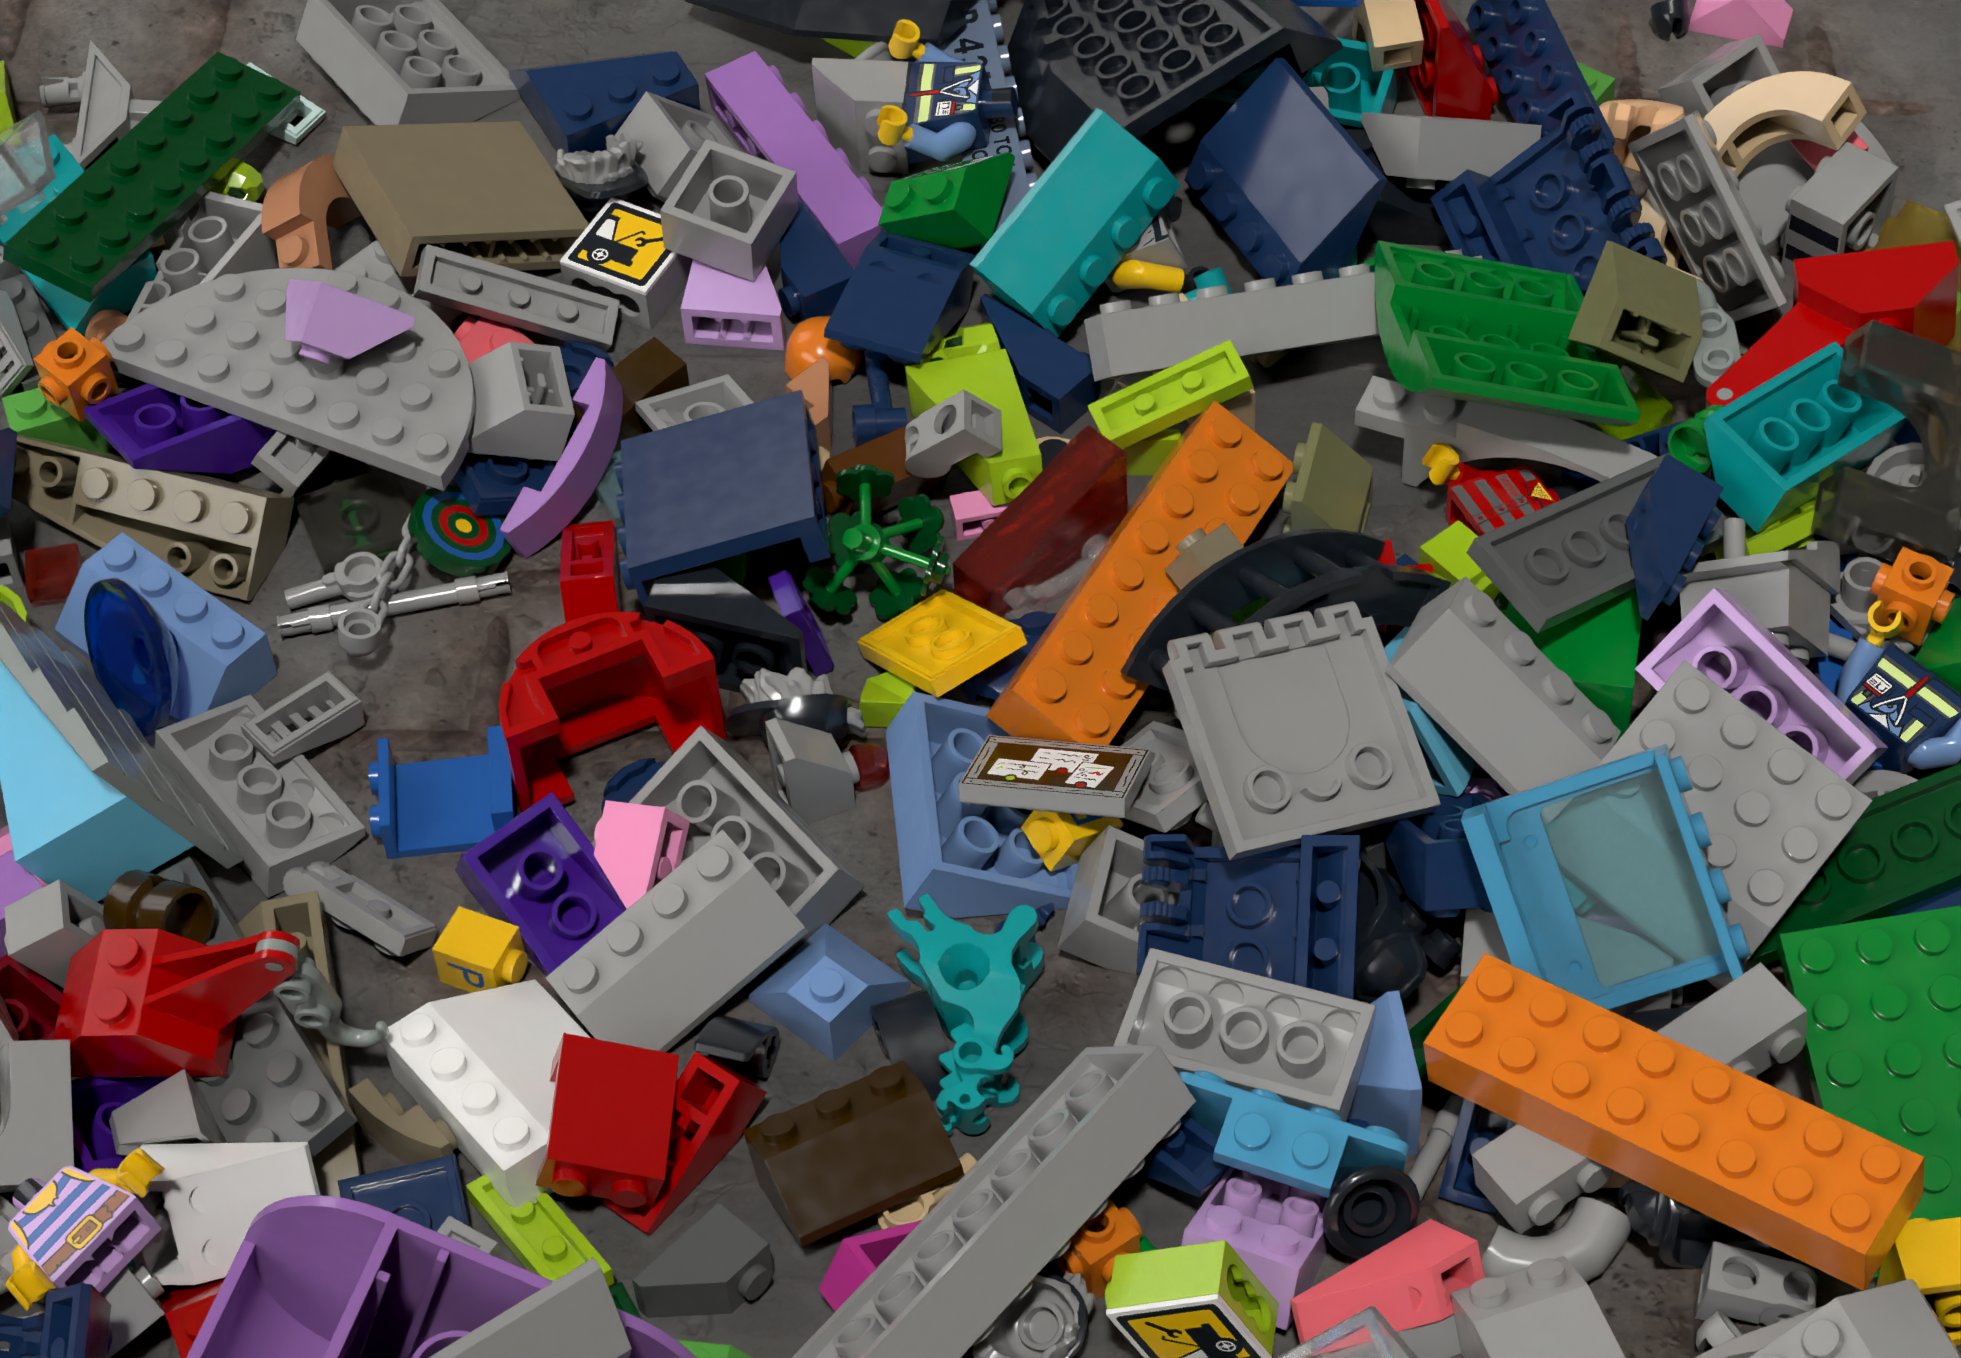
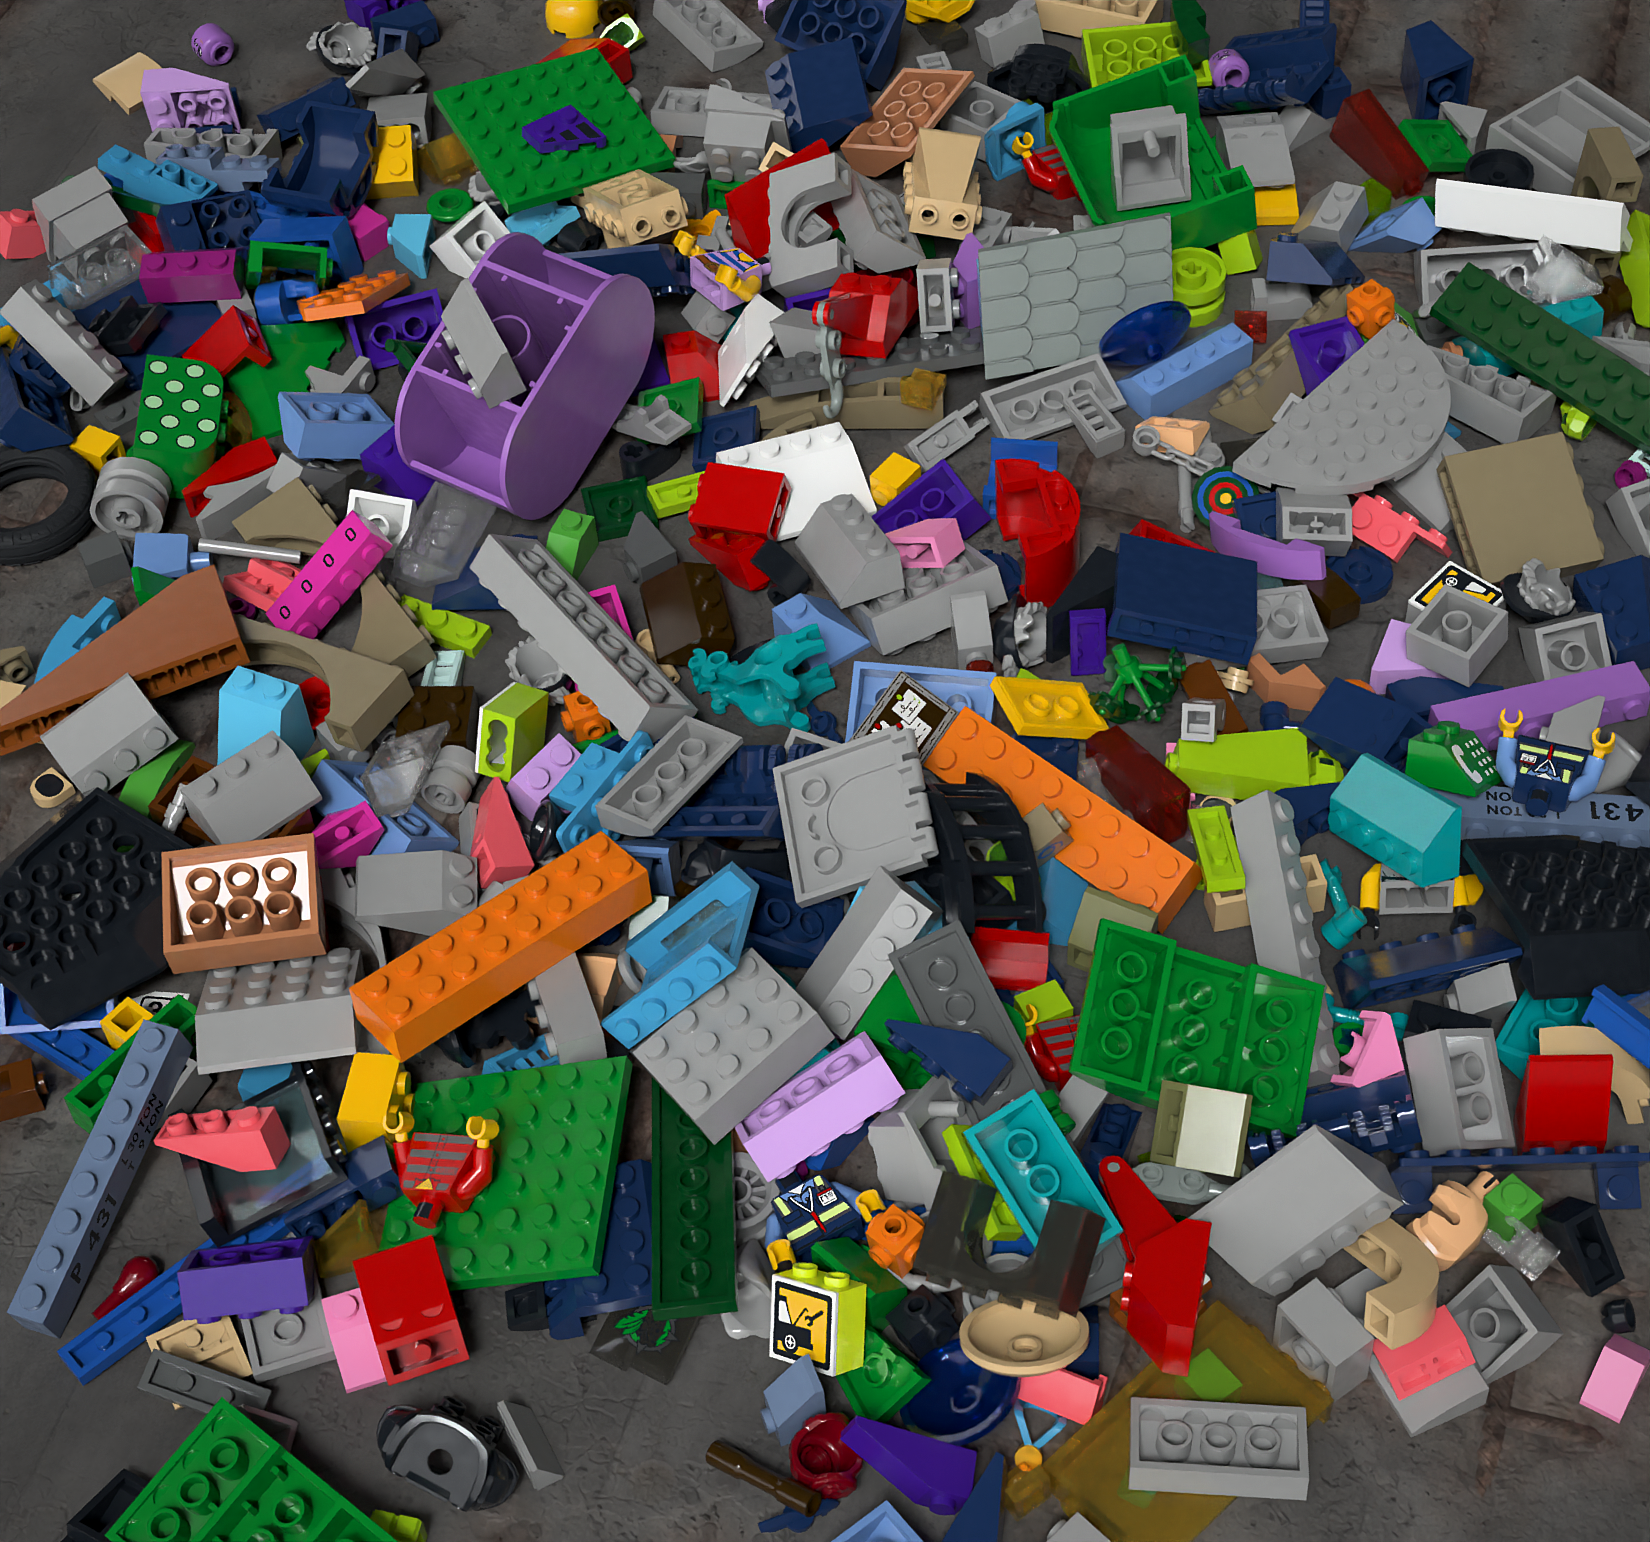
camera: 105 degrees right, 0 degrees up
(154, 902) = (932, 322): dark brown wheel -> none
(300, 208) = (1507, 424): nougat arch -> none
(308, 909) = (922, 388): none -> clear yellow bracket
(311, 629) = (1180, 433): none -> light nougat slope
(329, 125) = (1629, 474): none -> magenta plate
(337, 322) = (1367, 410): lavender slope -> none
(515, 297) = (1414, 532): light grey plate -> none
(1439, 217) = (1373, 1053): none -> bright pink slope
(1600, 43) = (1583, 1244): none -> black slope
(1649, 63) = (1526, 1251): none -> clear hinge

